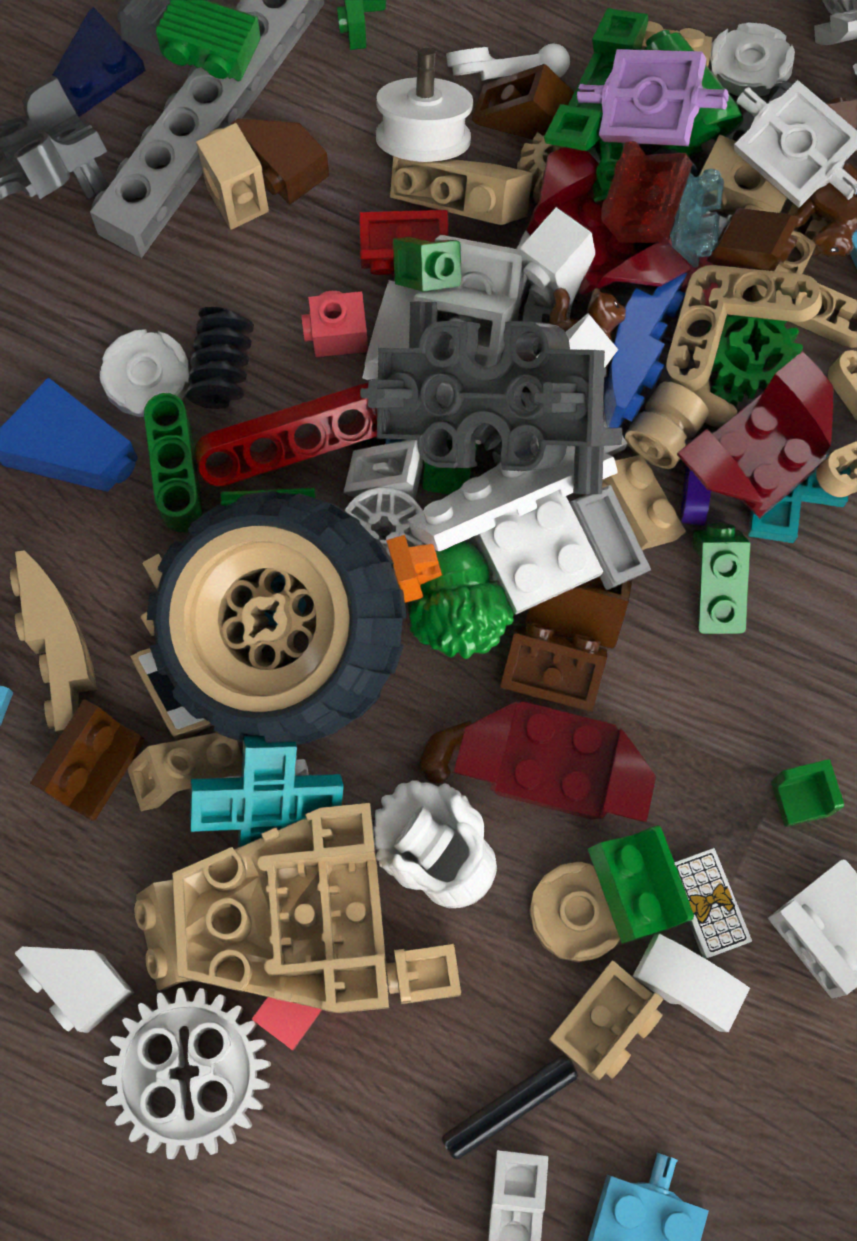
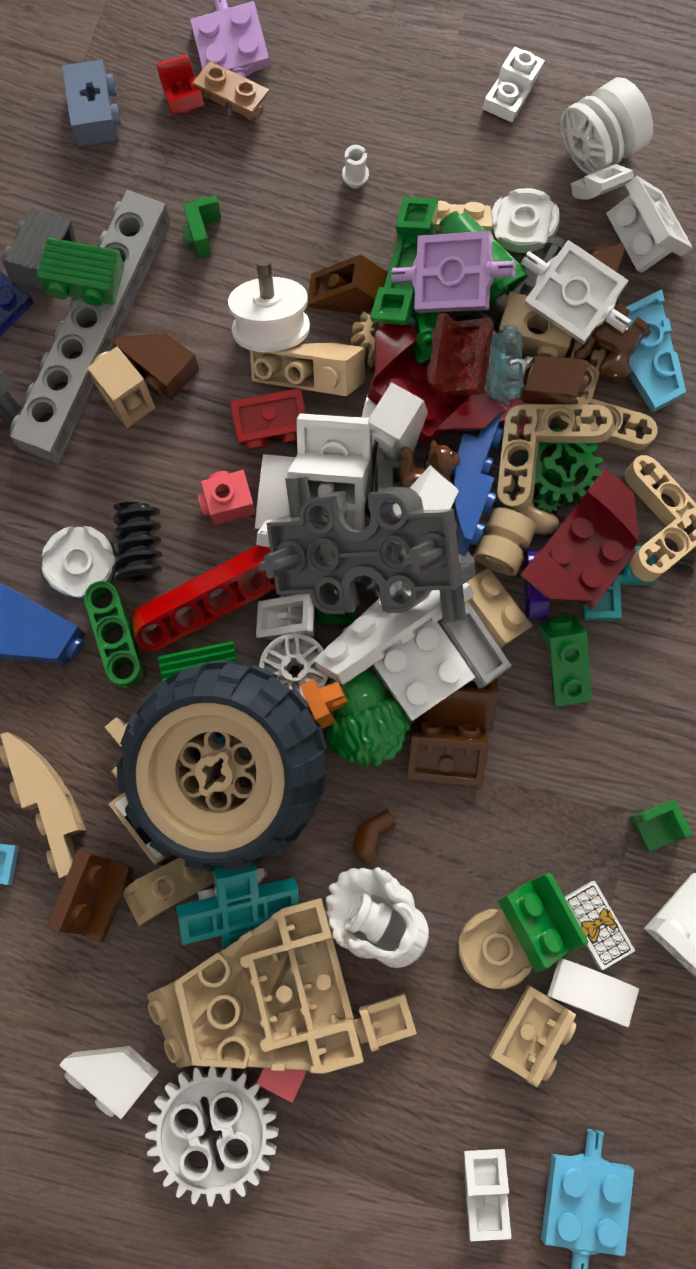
camera: 10 degrees left, 5 degrees up
(427, 264) = (292, 442): green bracket -> none
(479, 60) = (363, 243): white piece -> none
(509, 1107) = (468, 1114): black axle -> none
(558, 762) = (463, 832): dark red piece -> none

